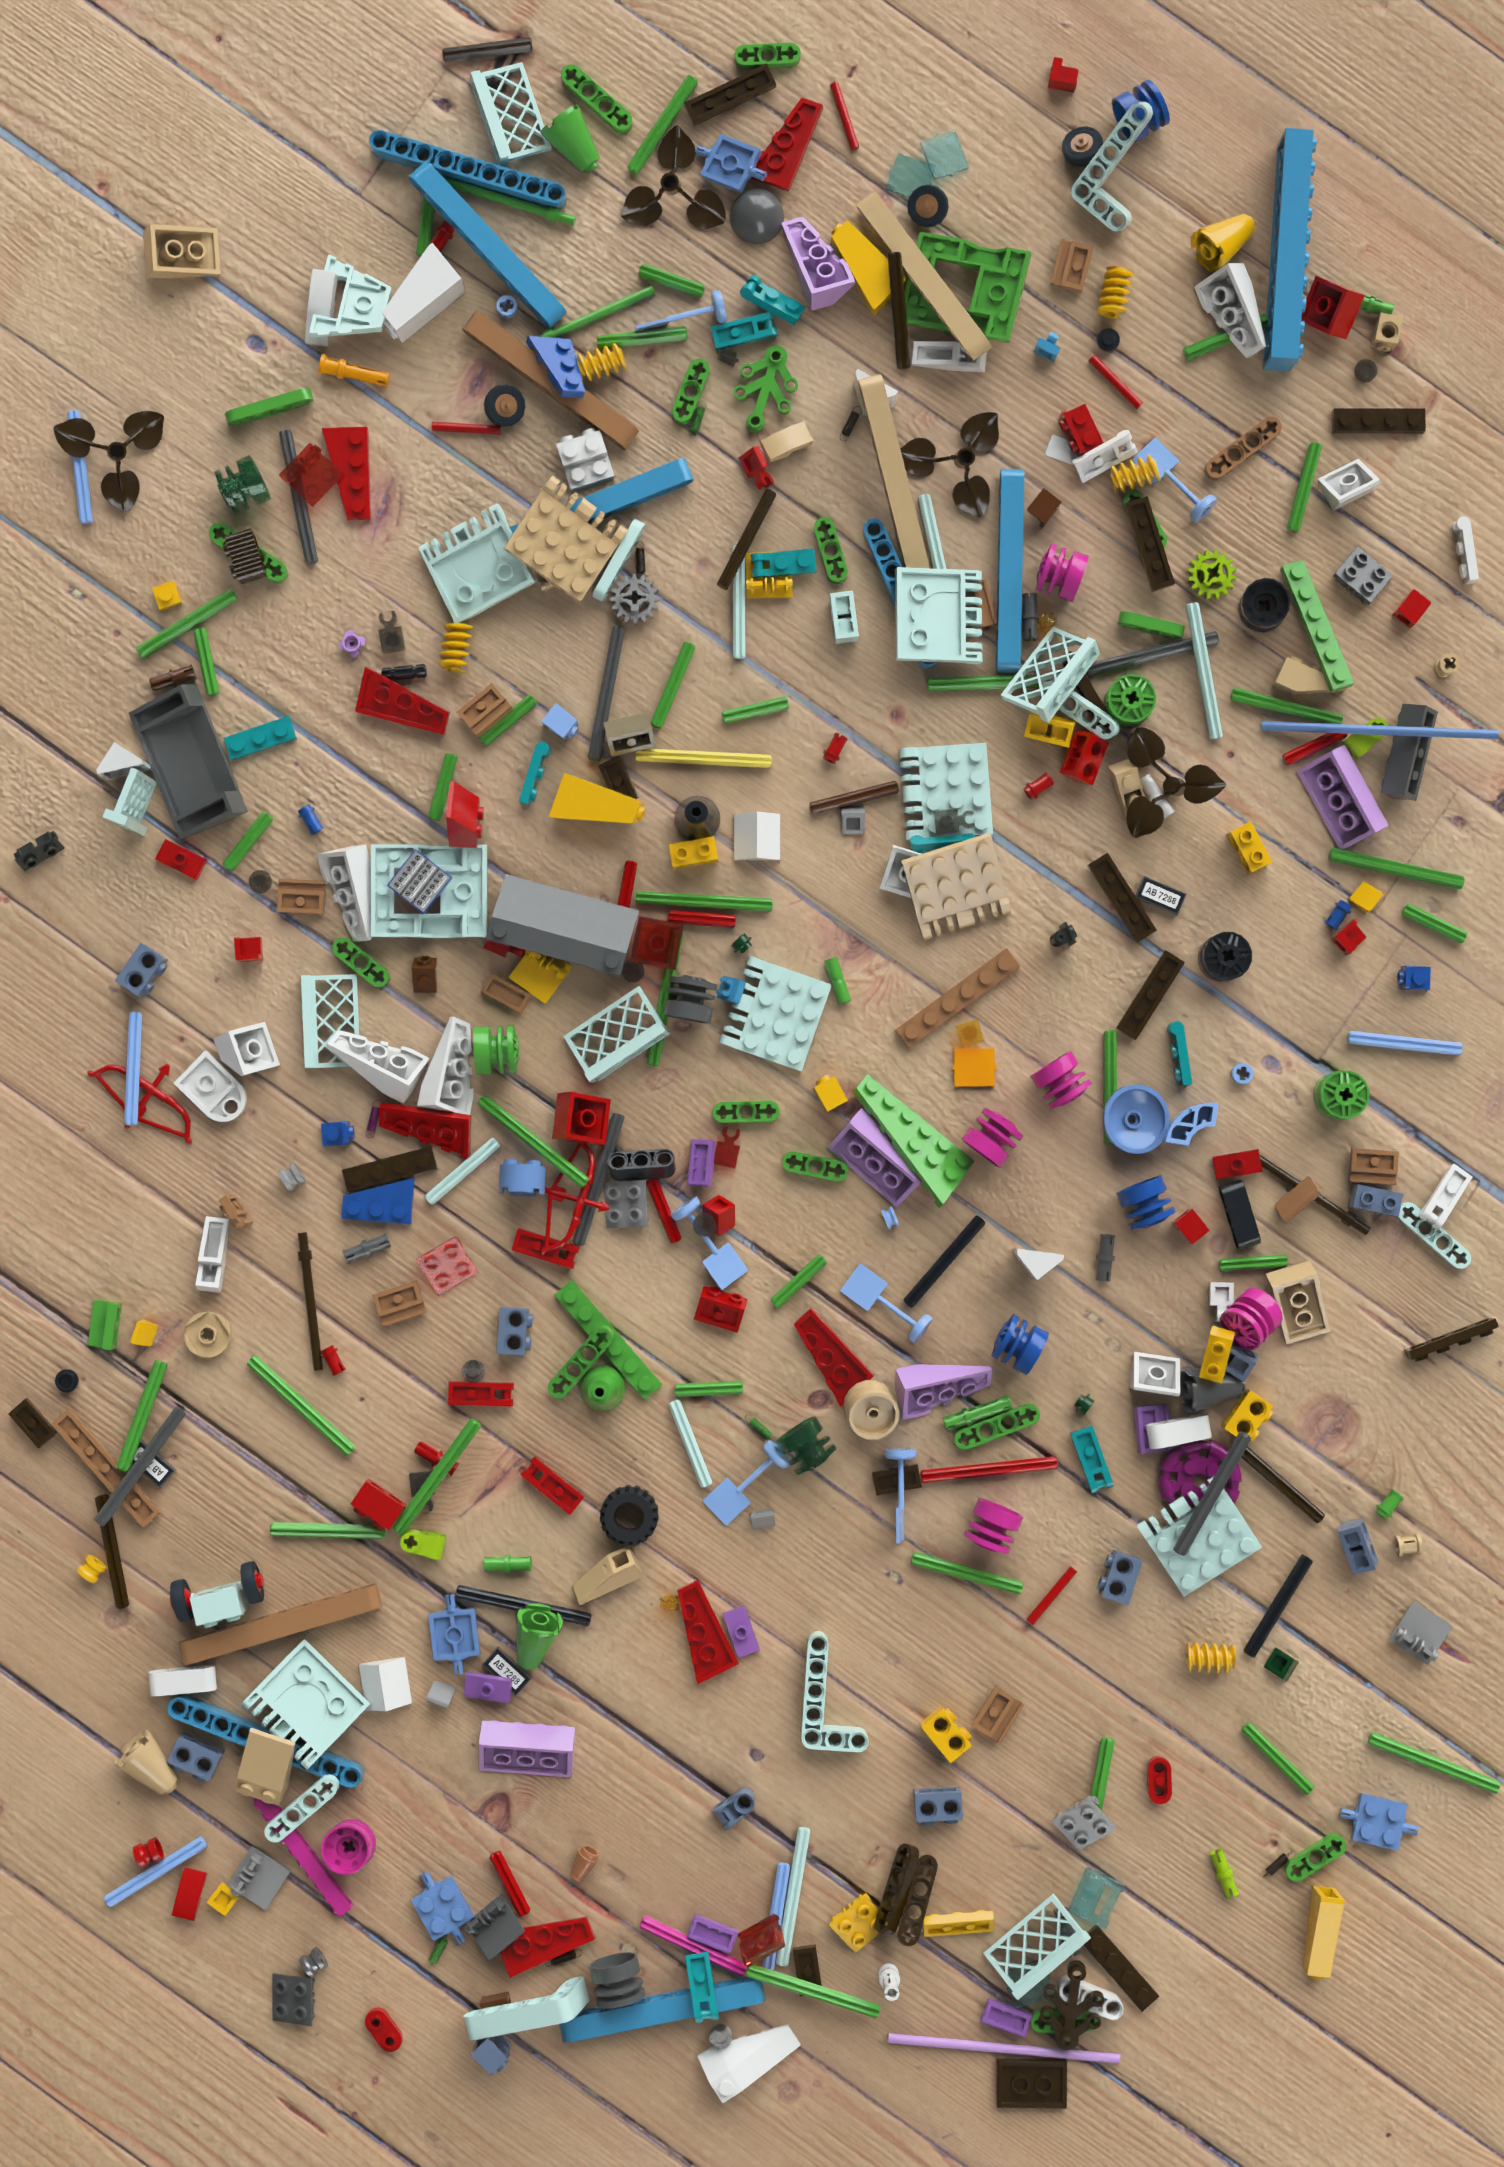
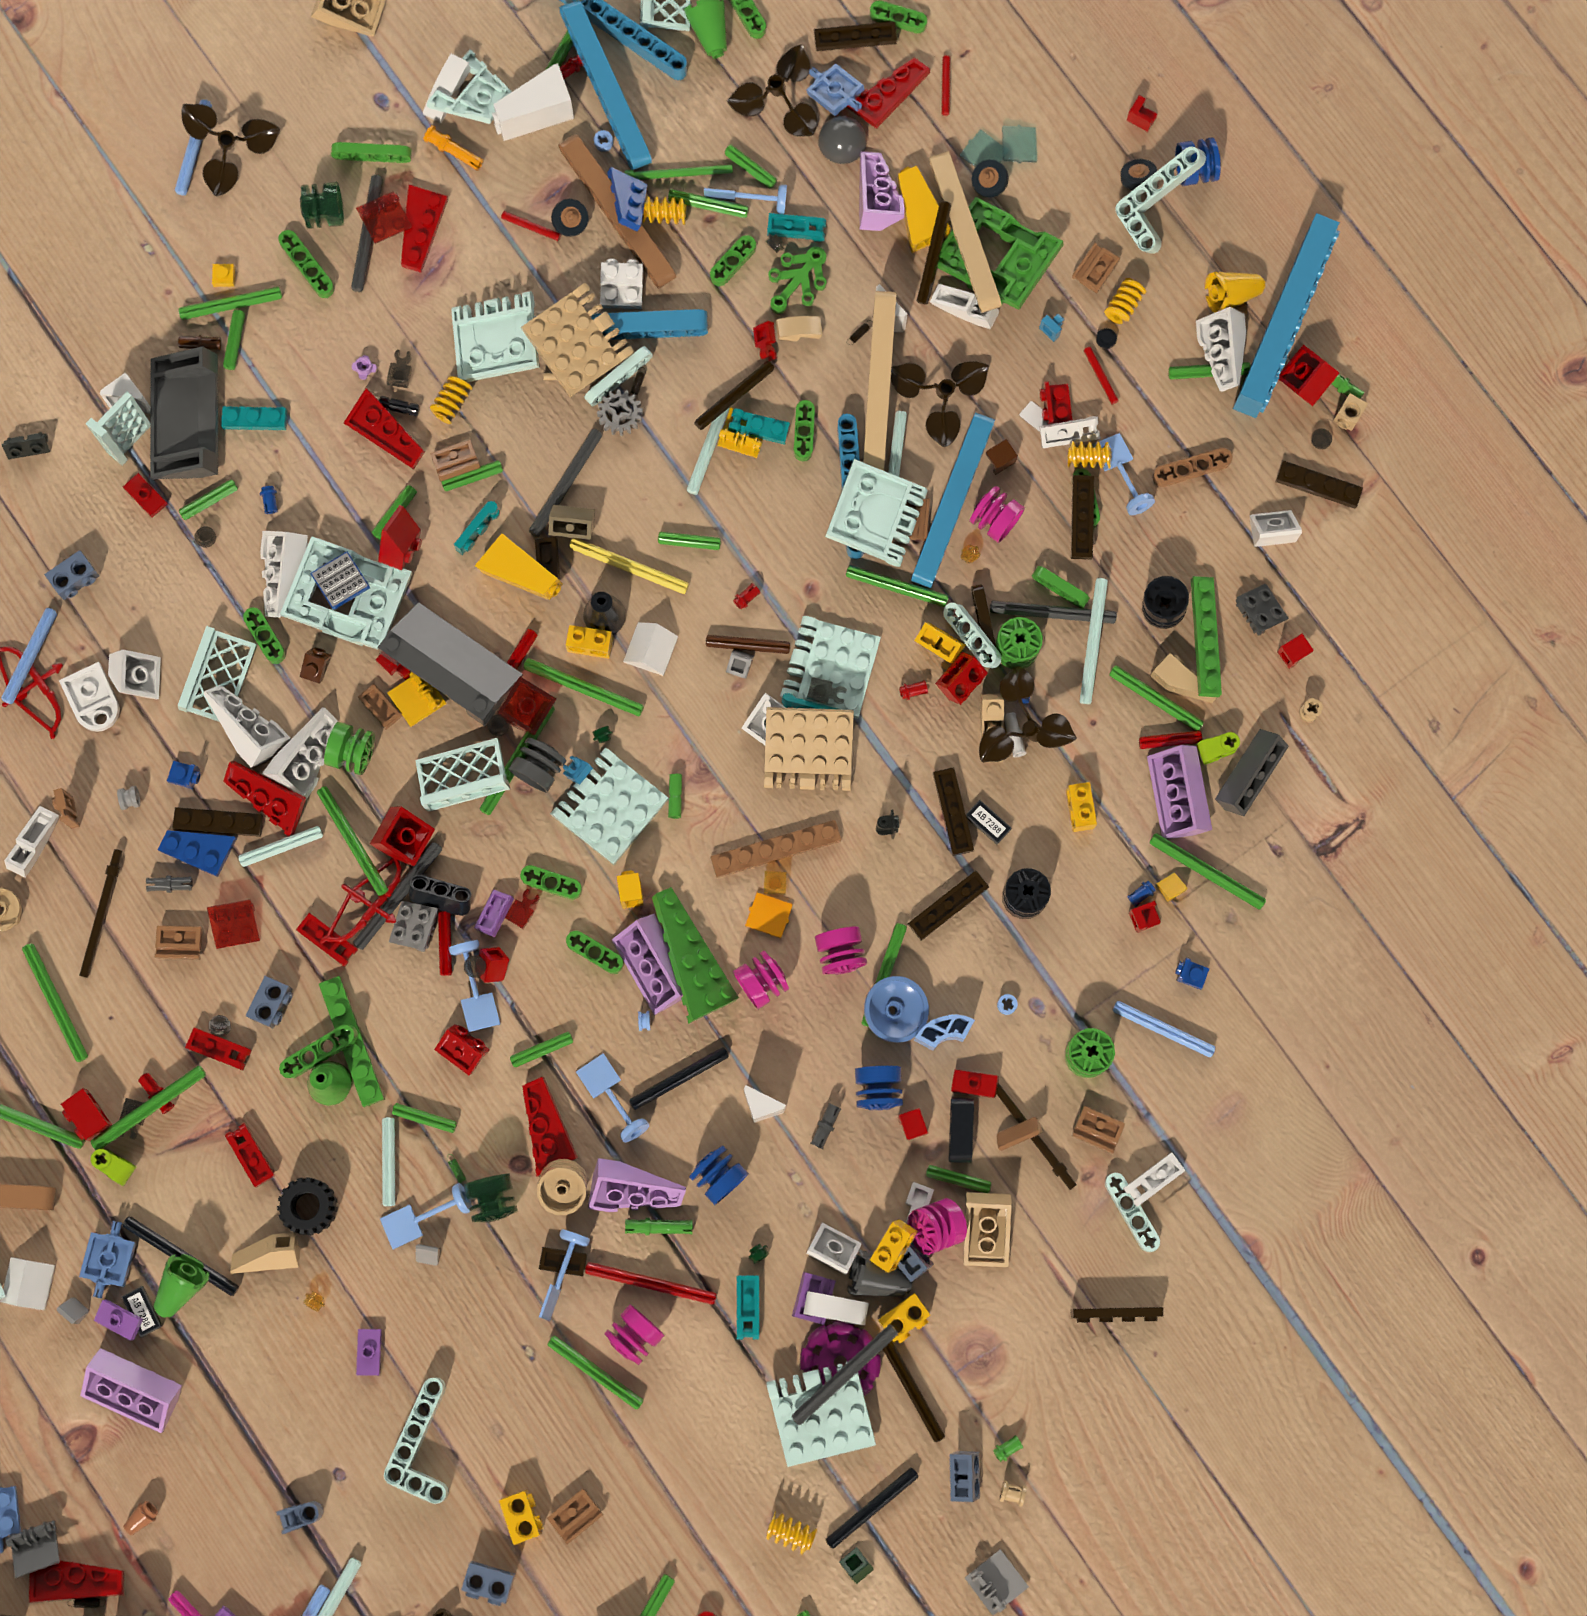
camera: 15 degrees right, 10 degrees down
(245, 556) = (300, 263): dark brown brick -> none
(248, 949) = (170, 590): red panel -> none
(301, 896) = (234, 561): medium nougat plate -> none
(332, 1360) = (99, 971): red pin -> none
(373, 1119) = (220, 774): magenta piece -> none
(507, 1563) = (181, 1212): bright green pin -> none
(509, 1883) = (65, 1513): red axle -> none
(522, 1178) = (329, 869): medium blue brick -> none
(552, 214) = (669, 79): bright green bar -> none
(560, 722) = (516, 492): light blue brick -> none
(662, 125) = (789, 41): bright green axle -> none
(672, 685) = (625, 495): bright green axle -> none
(698, 416) = (730, 285): bright green piece -> none
(704, 919) = (576, 701): red axle -> none
(707, 1641) = (334, 1341): red wing -> none
(772, 300) = (829, 210): teal plate -> none
(844, 617) = (794, 487): light aqua brick -> none
(995, 1423) = (672, 1241): bright green beam -> none
(1030, 616) = (957, 544): dark grey pin -> none
(1051, 1595) = (665, 1422): red bar -> none
(1065, 679) = (964, 604): light aqua fence -> none
(1126, 1578) = (739, 1430): sand blue brick -> none
(1180, 1053) = (957, 965): teal plate -> none
(1204, 569) = (1132, 569): lime gear -> none
(1304, 487) = (1235, 517): bright green axle -> none
(1375, 1200) = (1089, 1160): sand blue brick -> none
(1380, 730) = (1232, 742): medium blue piece -> none
(1434, 923) = (1226, 932): bright green axle -> none
(1465, 549) = (1359, 616): white plate -> none

